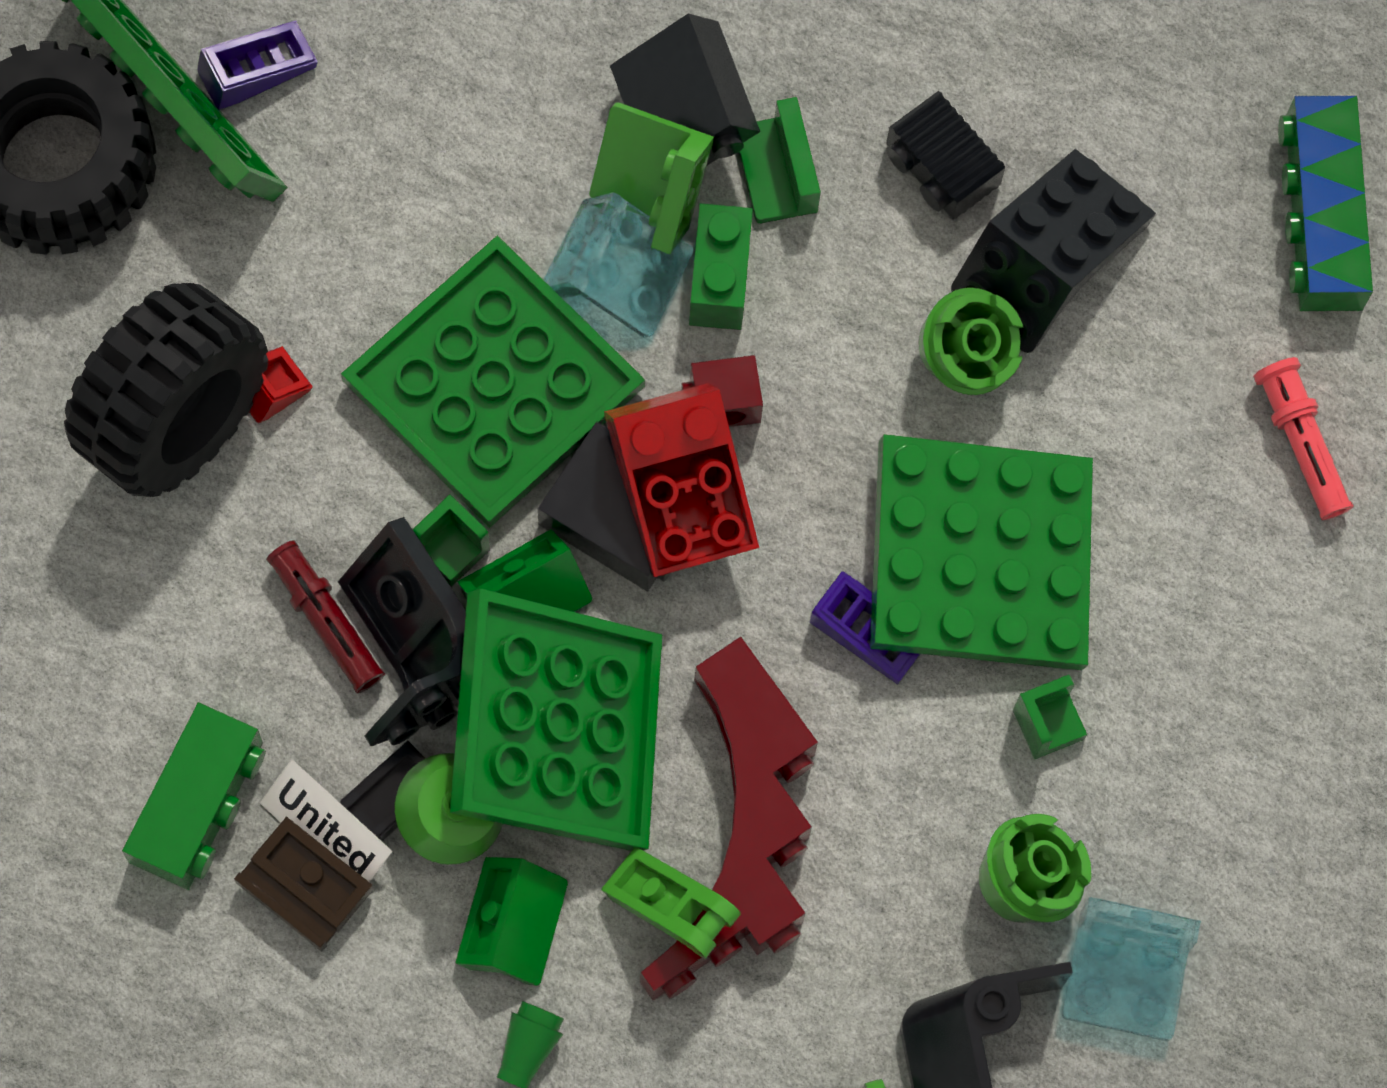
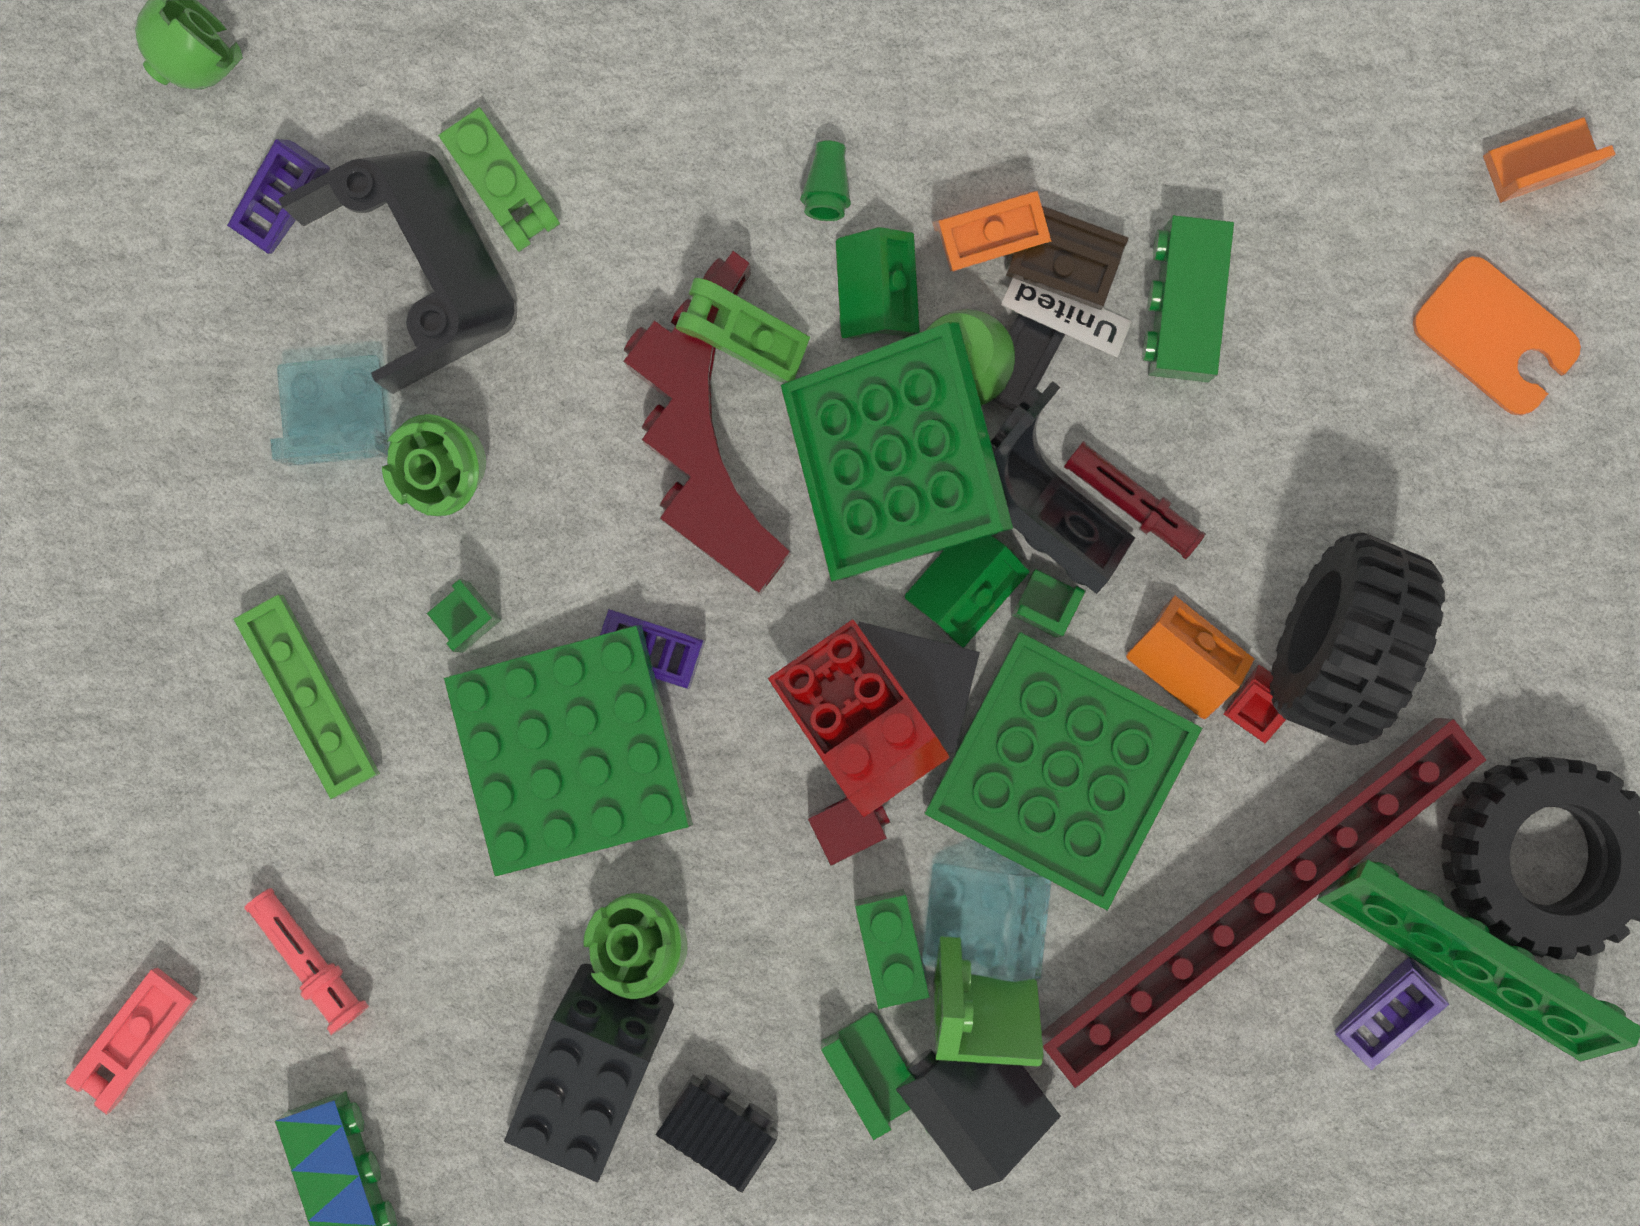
camera: 170 degrees right, 15 degrees up
(324, 446) = (1191, 658): none -> orange panel
(347, 196) = (1260, 899): none -> dark red brick
(374, 933) = (993, 230): none -> orange panel
(1234, 691) = (306, 696): none -> bright green plate

